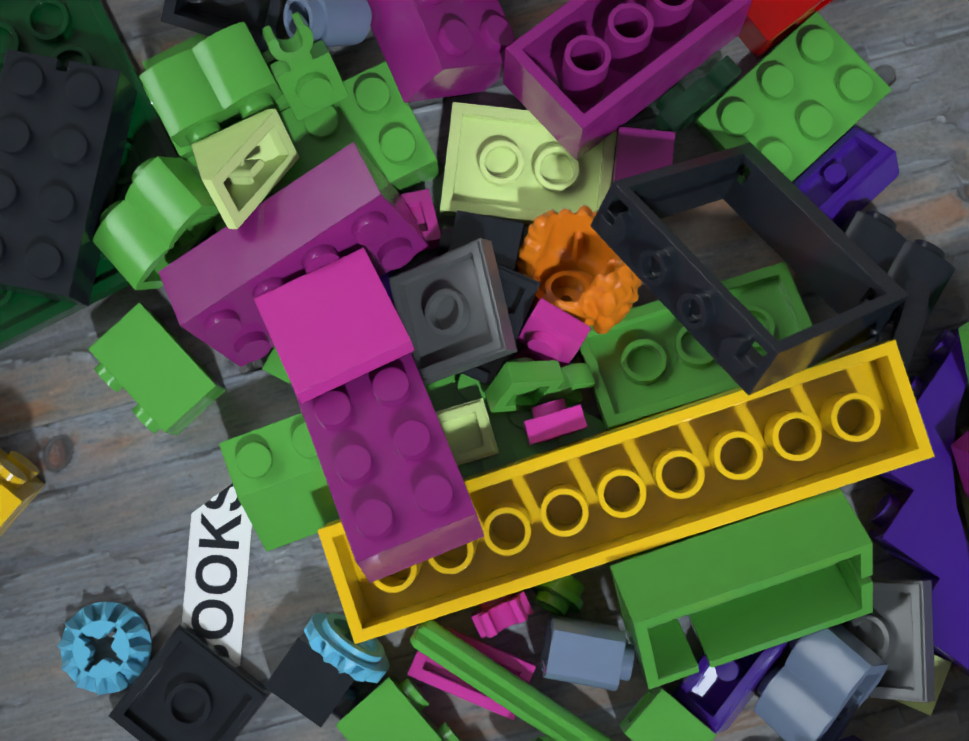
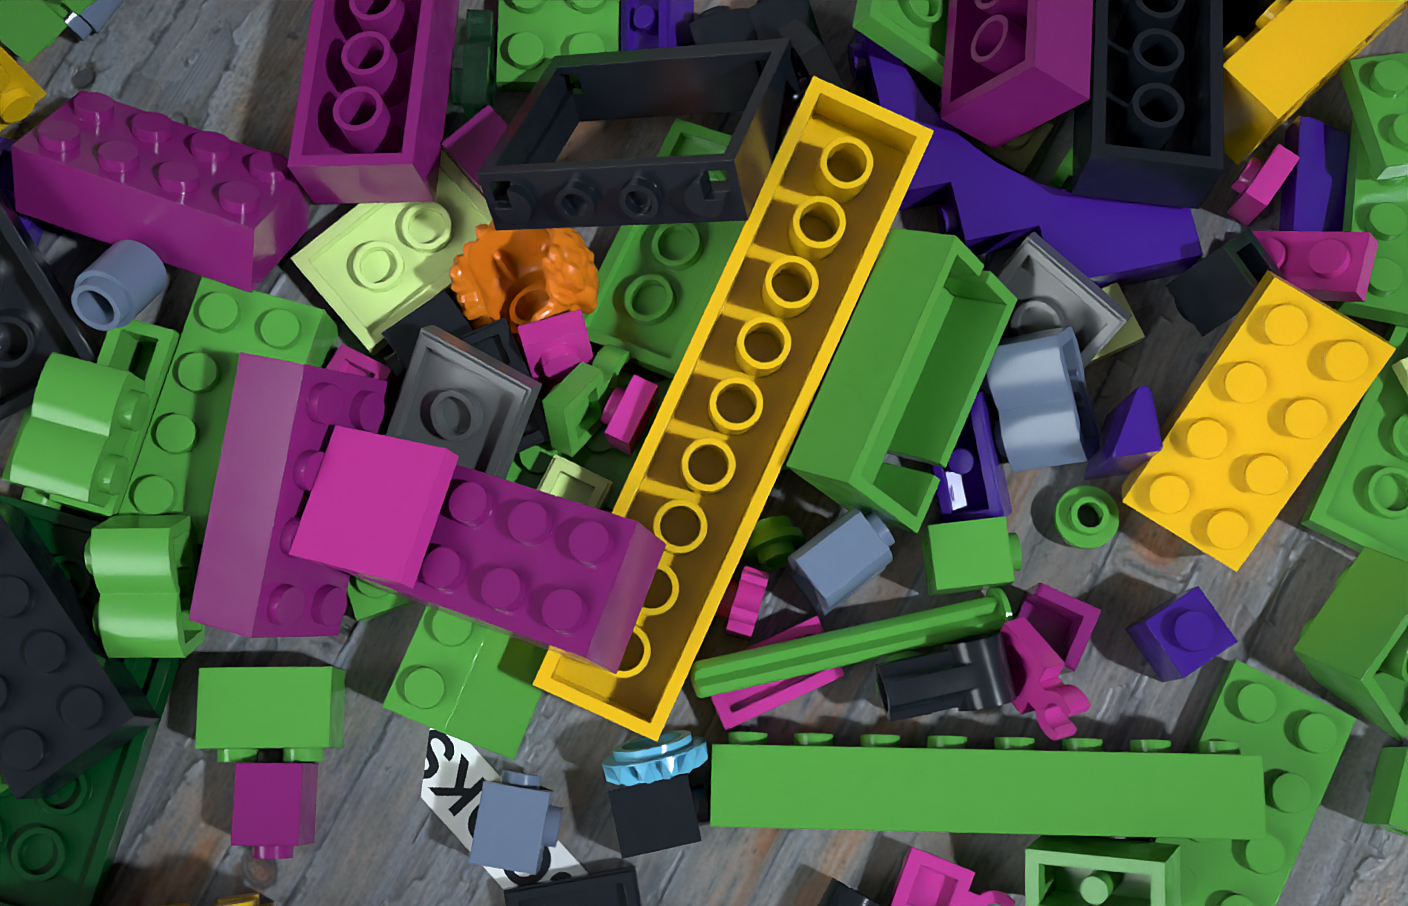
camera: 45 degrees left, 5 degrees down
(98, 431) = (274, 807): none -> magenta brick
(225, 593) = (515, 823): none -> sand blue brick
(244, 164) = (170, 461): yellowish green slope -> none
(304, 70) = (144, 341): bright green plate -> none

